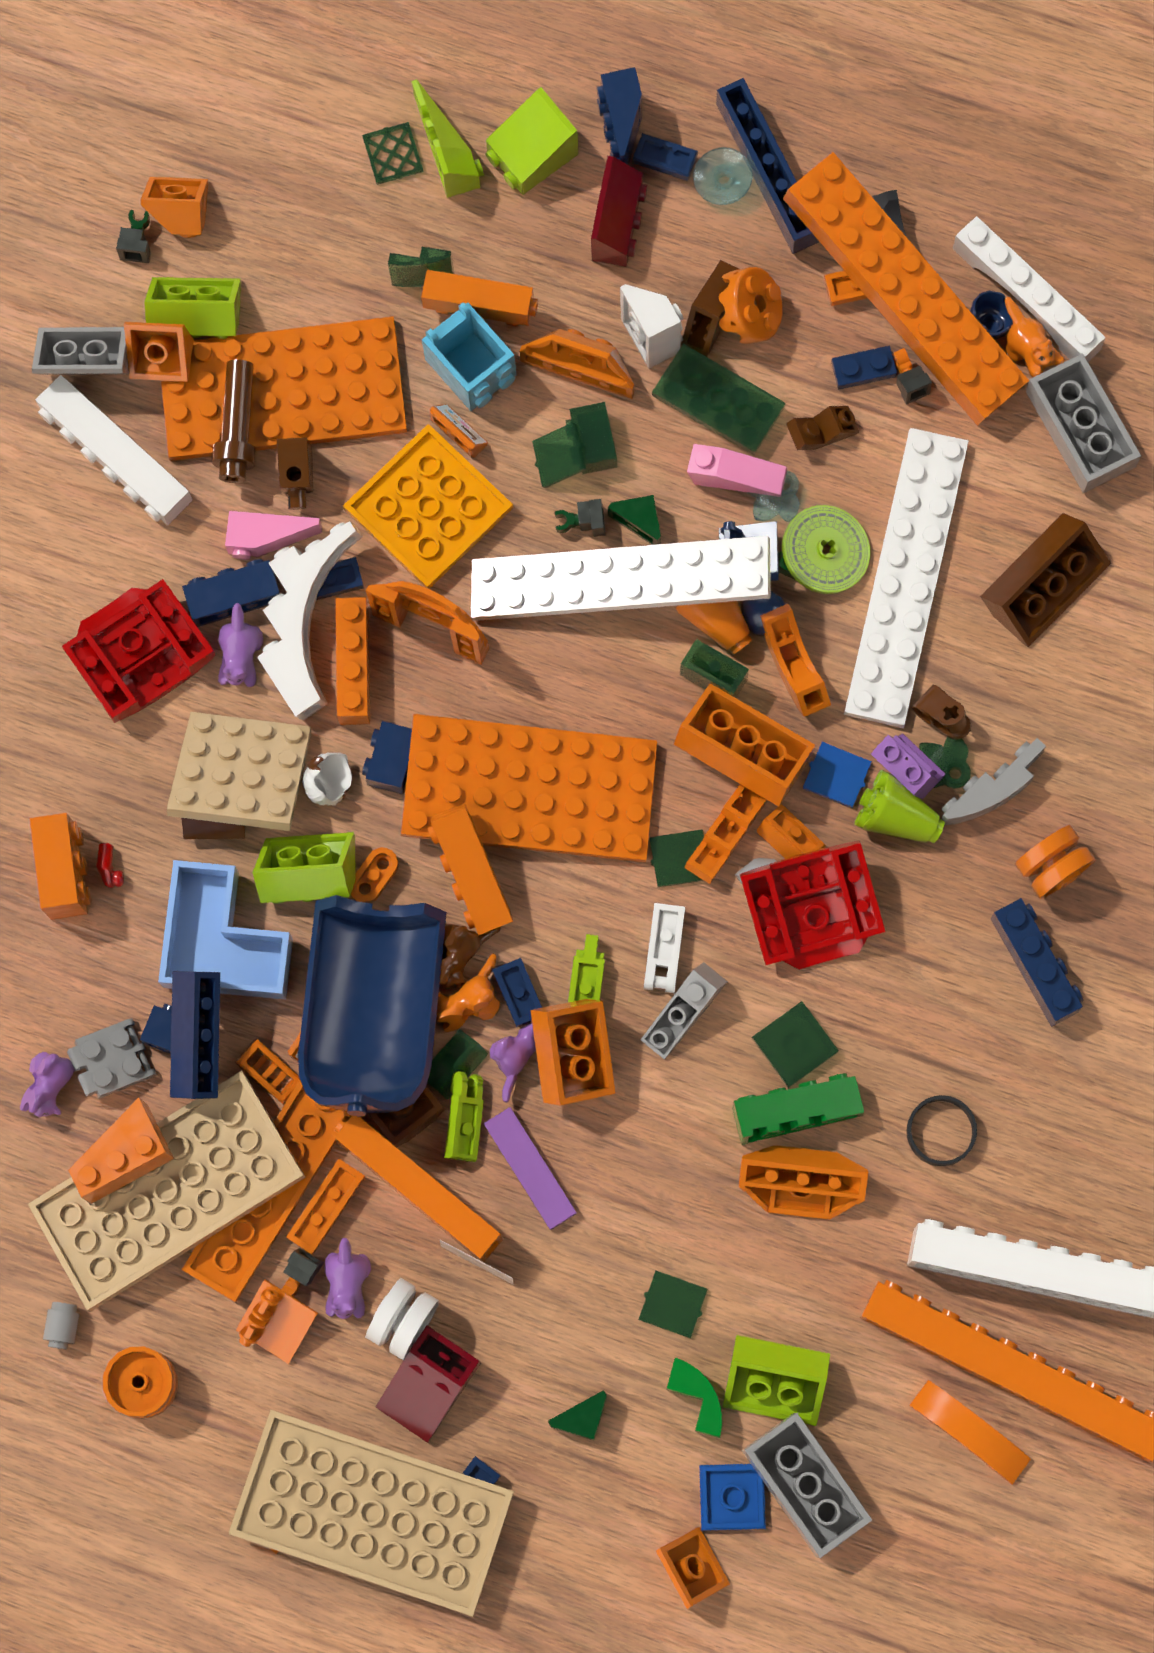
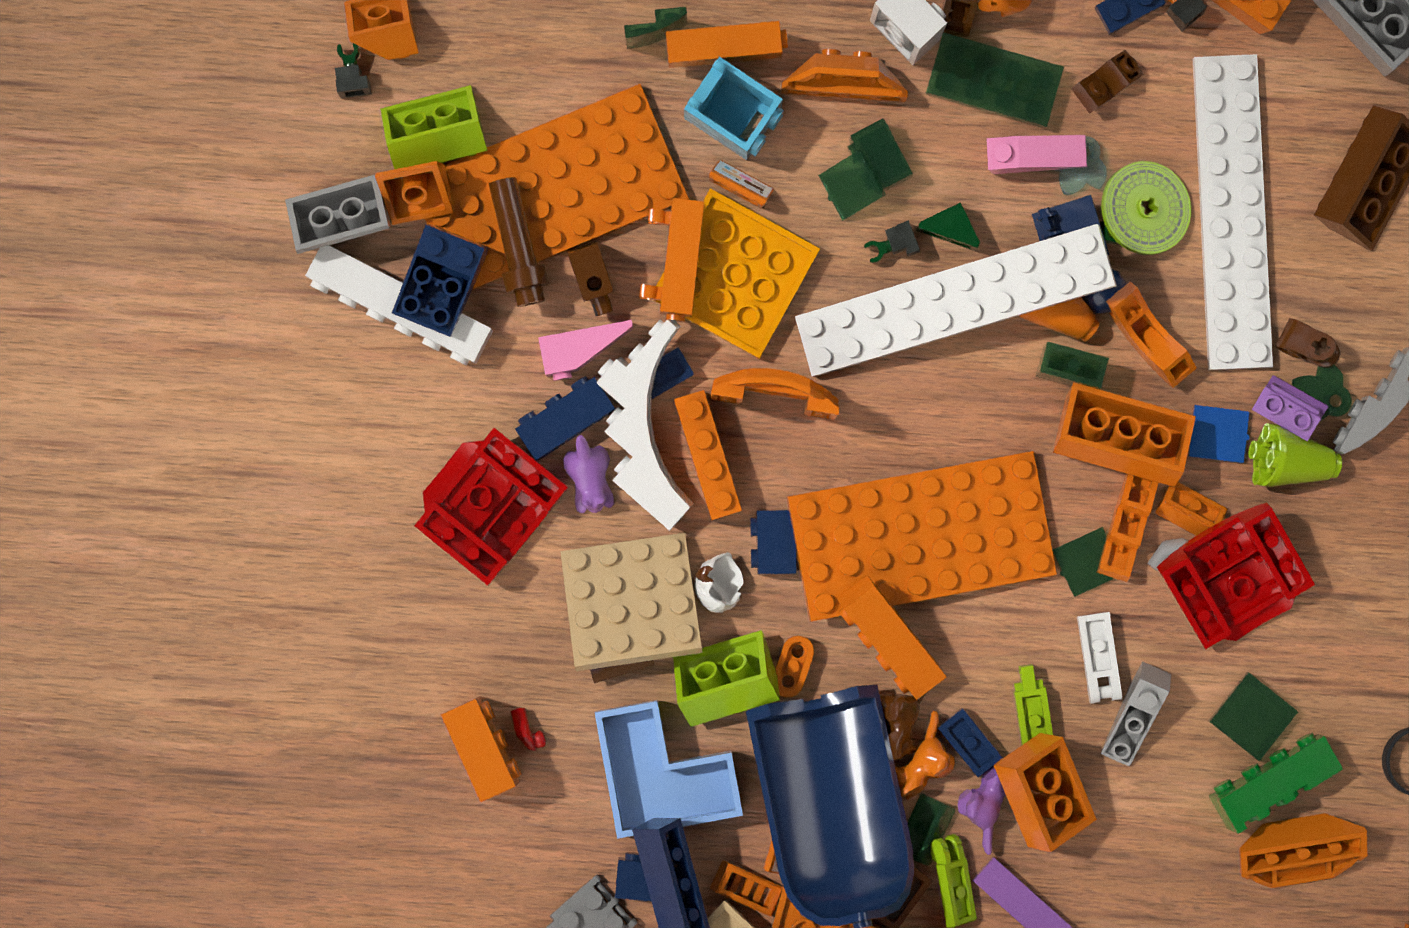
camera: 20 degrees left, 10 degrees up
(155, 433) = (440, 279): none -> dark blue slope
(381, 475) = (681, 258): none -> orange brick

